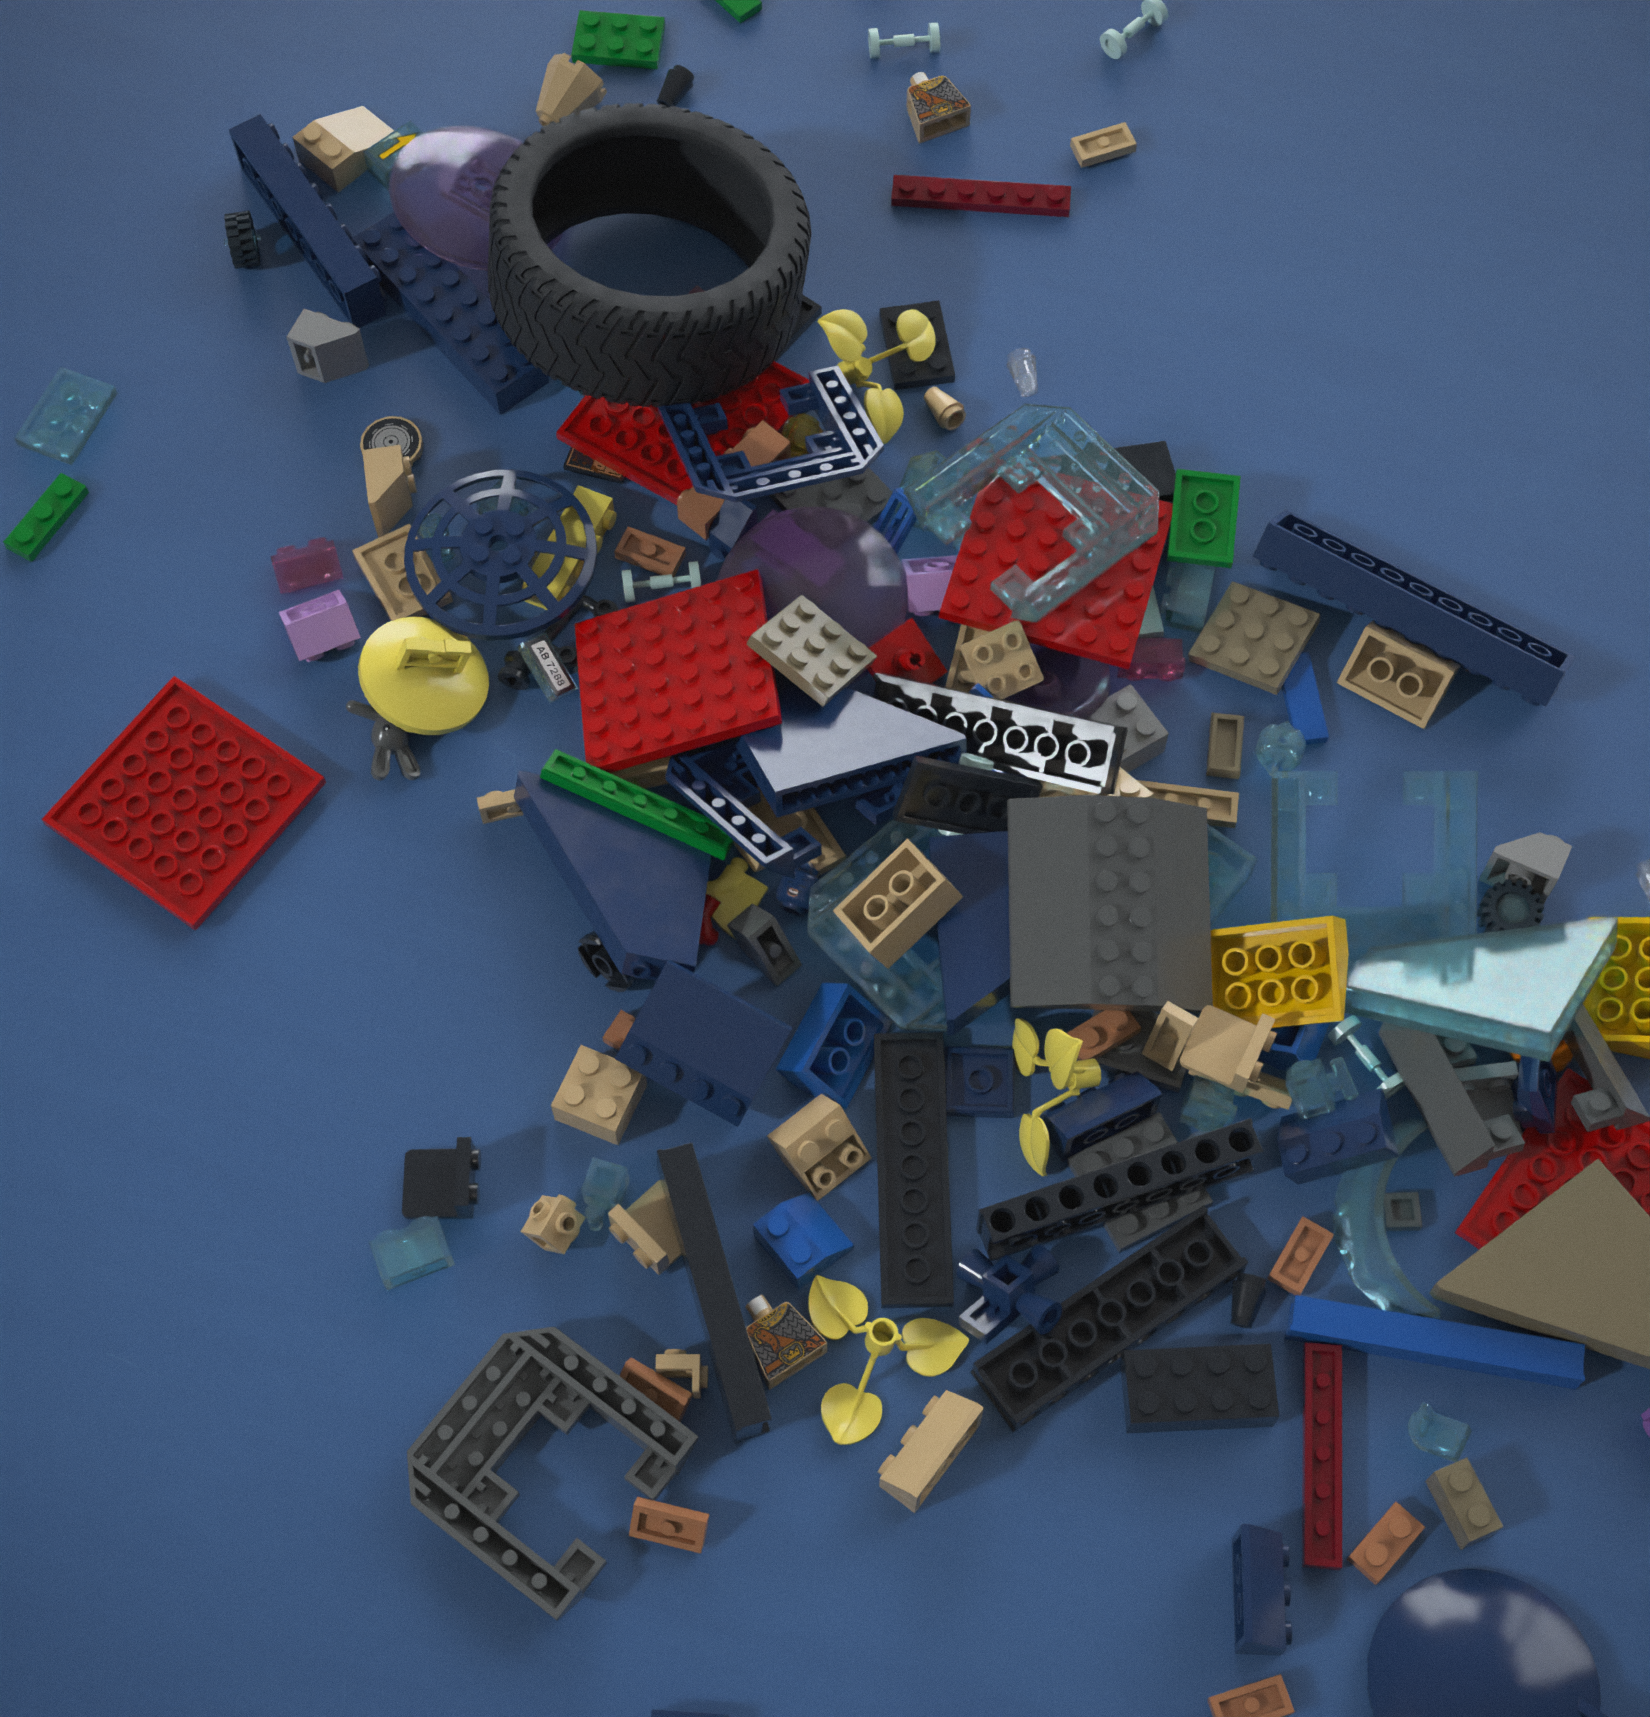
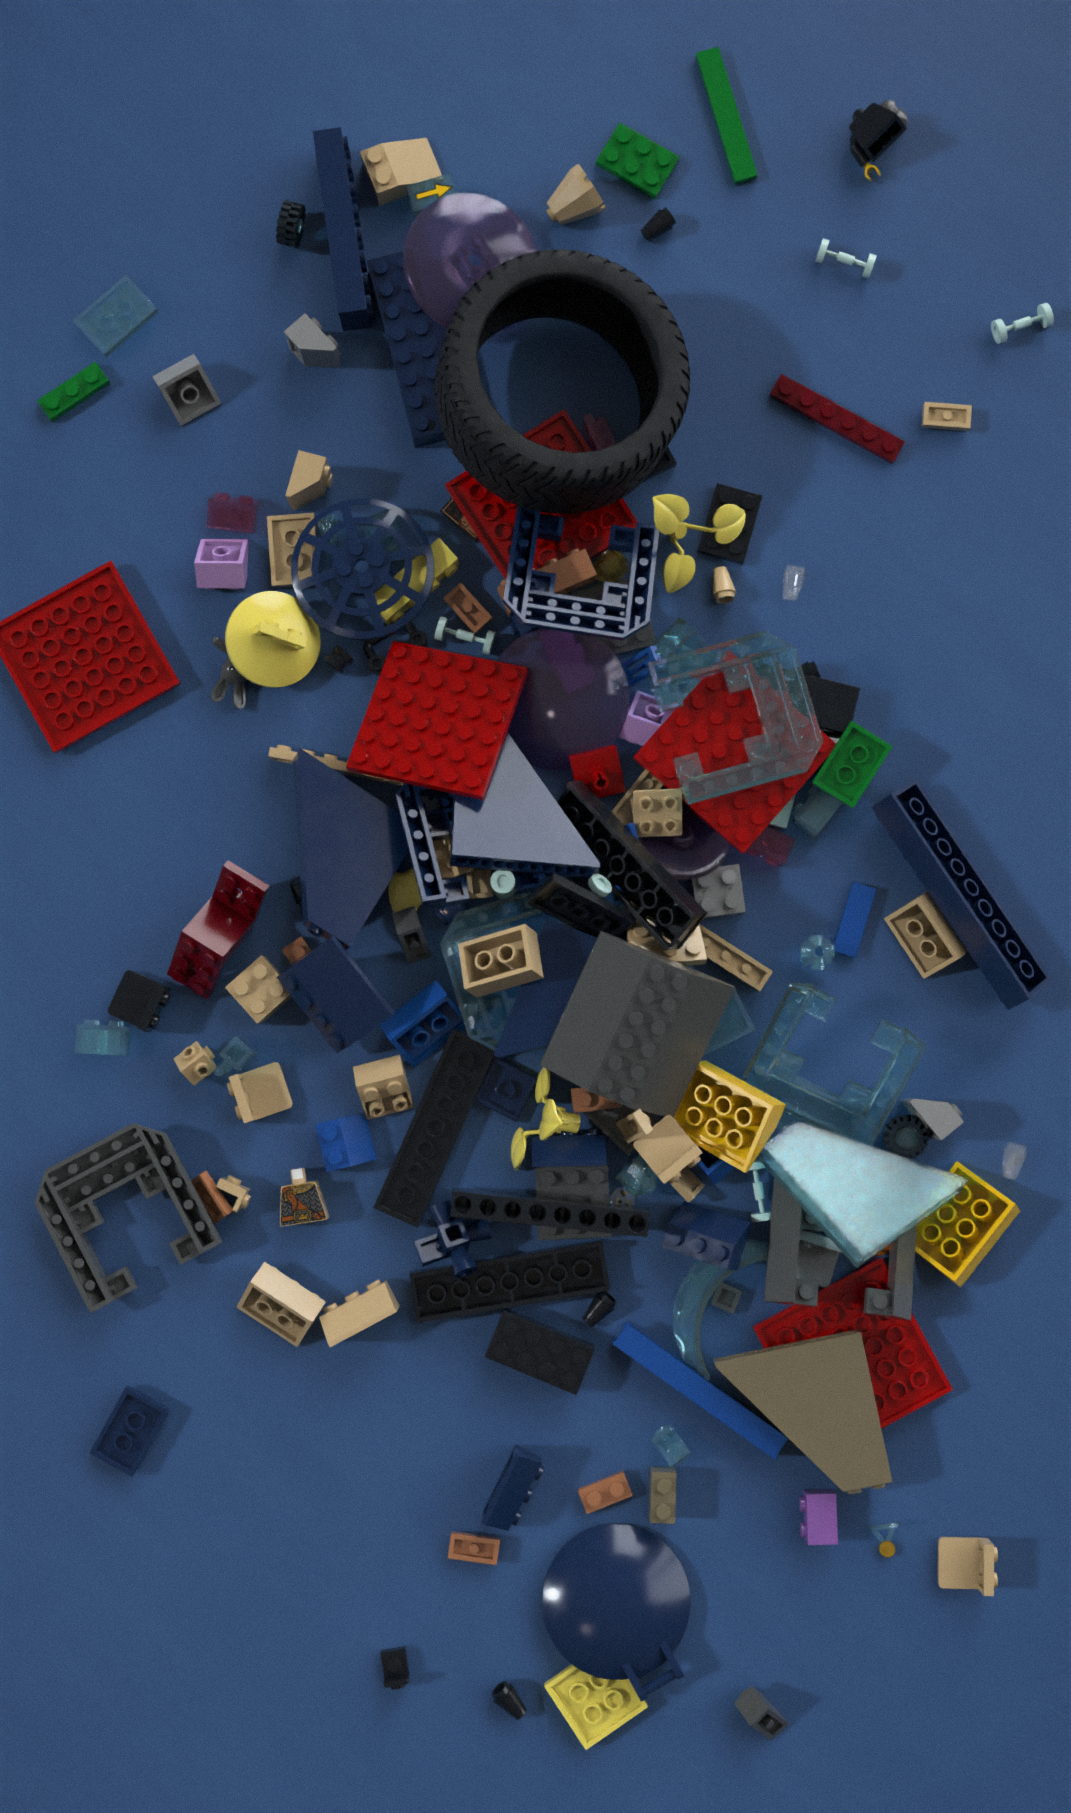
camera: 25 degrees right, 20 degrees up
(190, 456) = (187, 389): none -> light grey slope
(392, 432) = (330, 439): tile -> none
(508, 1039) = (217, 930): none -> dark red bracket
(547, 667) = (358, 668): tile -> none
(636, 803) = (364, 801): green tile -> none
(669, 1524) = (184, 1282): nougat plate -> none
(708, 934) = (380, 908): red arm -> none
(713, 1292) = (270, 1157): black tile -> none
(811, 650) = (532, 749): dark tan plate -> none
(817, 1493) = (280, 1304): none -> tan slope
(841, 1307) = (391, 1246): light yellow plant -> none
(852, 815) = (503, 884): none -> light aqua wheel
(935, 107) = (839, 328): torso -> none
(1225, 745) = (784, 930): dark tan tile -> none
(1254, 637) = (844, 861): dark tan plate -> none
(1300, 1256) = (646, 1297): nougat plate -> none
(1315, 1089) = (709, 1200): clear light blue brick -> none
(1322, 1457) = (594, 1424): dark red plate -> none
(1536, 1094) = (845, 1275): dark blue slope -> none

